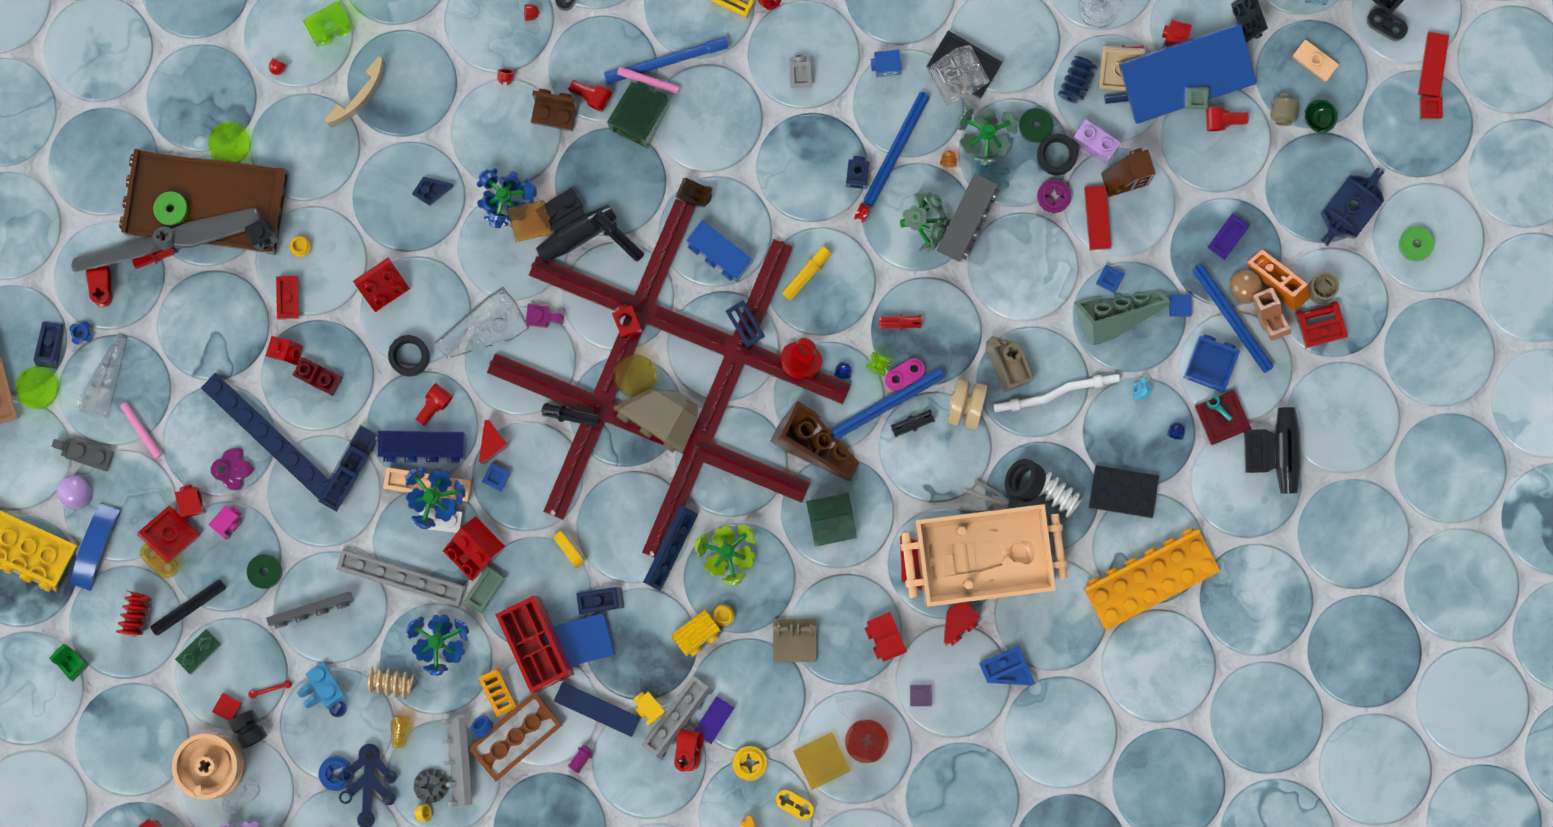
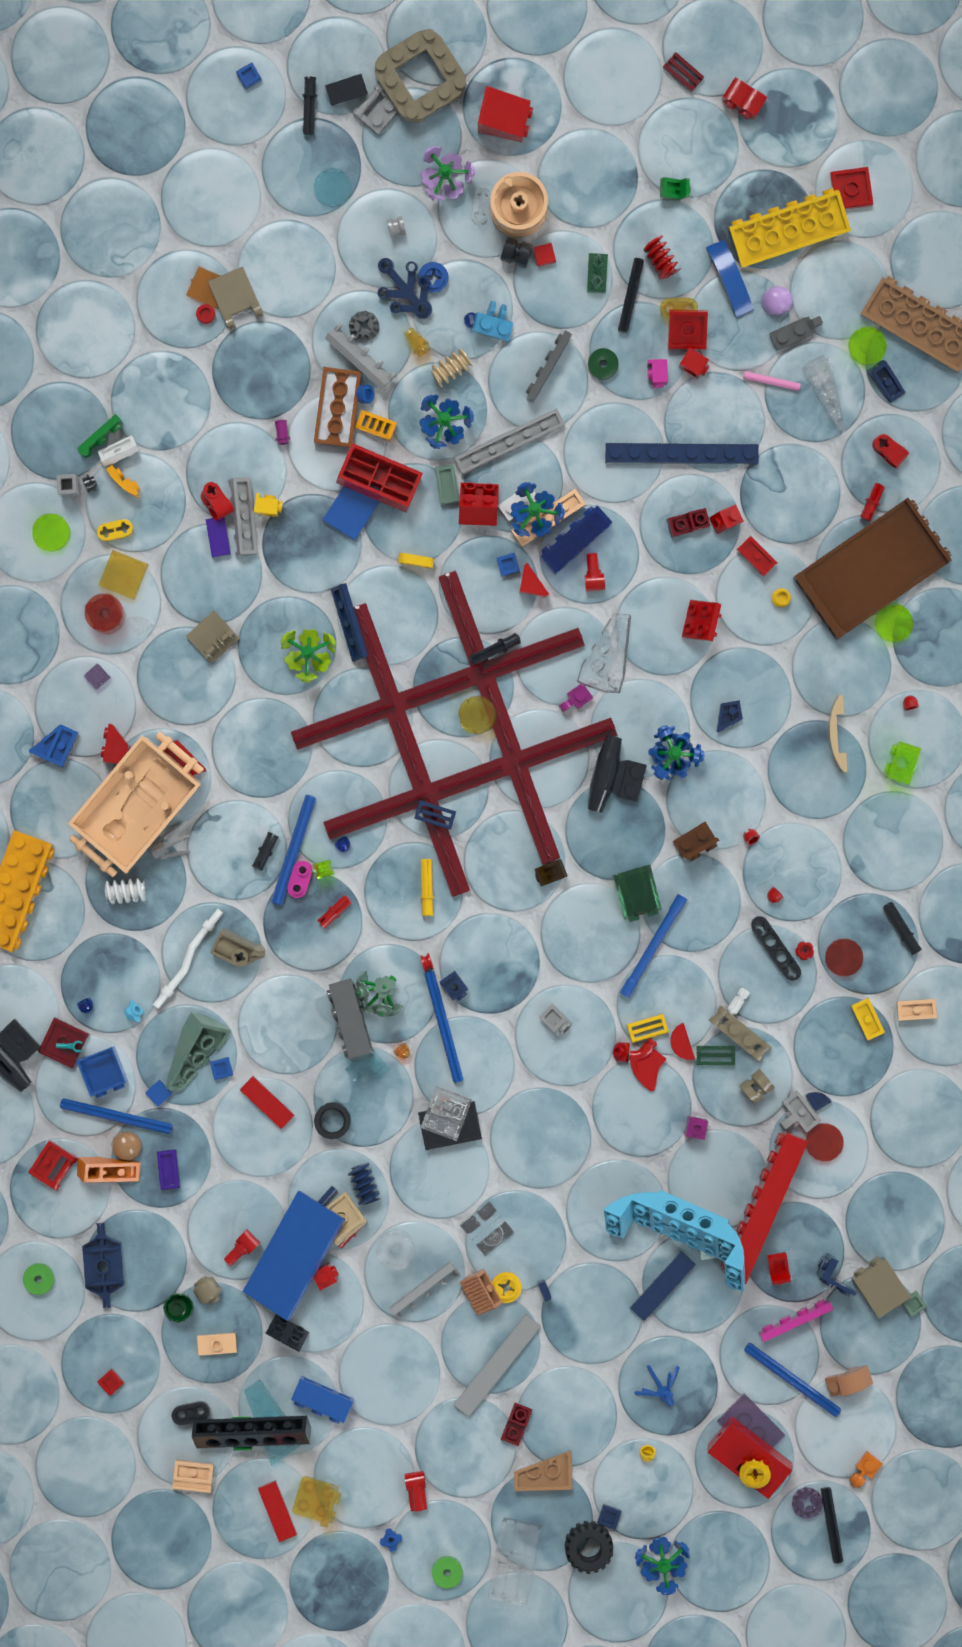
camera: 130 degrees right, 5 degrees up
(76, 328) = (877, 407): blue plate -> none
(169, 199) = (896, 537): bright green piece -> none
(183, 236) = (863, 532): dark grey piece -> none
(234, 469) = (685, 412): magenta plate -> none
(253, 694) = (535, 279): red hinge -> none
(261, 234) = (810, 579): black brick -> none
(348, 468) = (610, 480): dark blue slope -> none
(423, 813) = (352, 303): yellow hinge -> none
(425, 356) = (643, 605): black tyre -> none
(529, 221) = (642, 753): clear orange piece -> none
(596, 97) = (678, 877): red pin -> none
(597, 709) = (301, 474): dark blue tile -> none
(600, 600) = (364, 546): dark blue slope -> none
(617, 235) = (576, 796): black axle -> none
(629, 330) = (509, 736): red brick -> none
(648, 80) = (651, 921): bright pink bar -> none
(661, 415) = (432, 703): dark tan brick -> none
(696, 633) = (281, 582): yellow brick -> none
(718, 251) = (498, 848): blue brick -> none
(723, 615) = (274, 610): yellow plate -> none
(757, 770) = (169, 520): yellow gear -> none
(801, 359) = (376, 825): red tile -> none
(809, 439) = (324, 778): reddish brown wedge -> none
(831, 519) = (260, 737): clear green slope -> none
(886, 63) = (503, 1078): blue brick -> none
(886, 637) = (153, 693): red brick -> none
(966, 404) = (241, 893): tan wheel -> none
(985, 124) = (398, 1097): sand green plant -> none
(1035, 115) = (364, 1119): dark green piece -> none
(1035, 484) = (165, 876): black tyre -> none
(1061, 190) = (309, 1099): magenta gear -> none
(1096, 141) = (313, 1152): lavender brick -> none
(1123, 491) = (84, 933): black plate -> none
(1129, 173) = (270, 1149): reddish brown wedge -> none
(1197, 97) = (273, 1244): sand green tile -> none
(1270, 314) = (91, 1139): nougat brick -> none
(1323, 288) = (73, 1190): dark tan wheel -> none
(1433, 64) = (135, 1413): red tile -> none

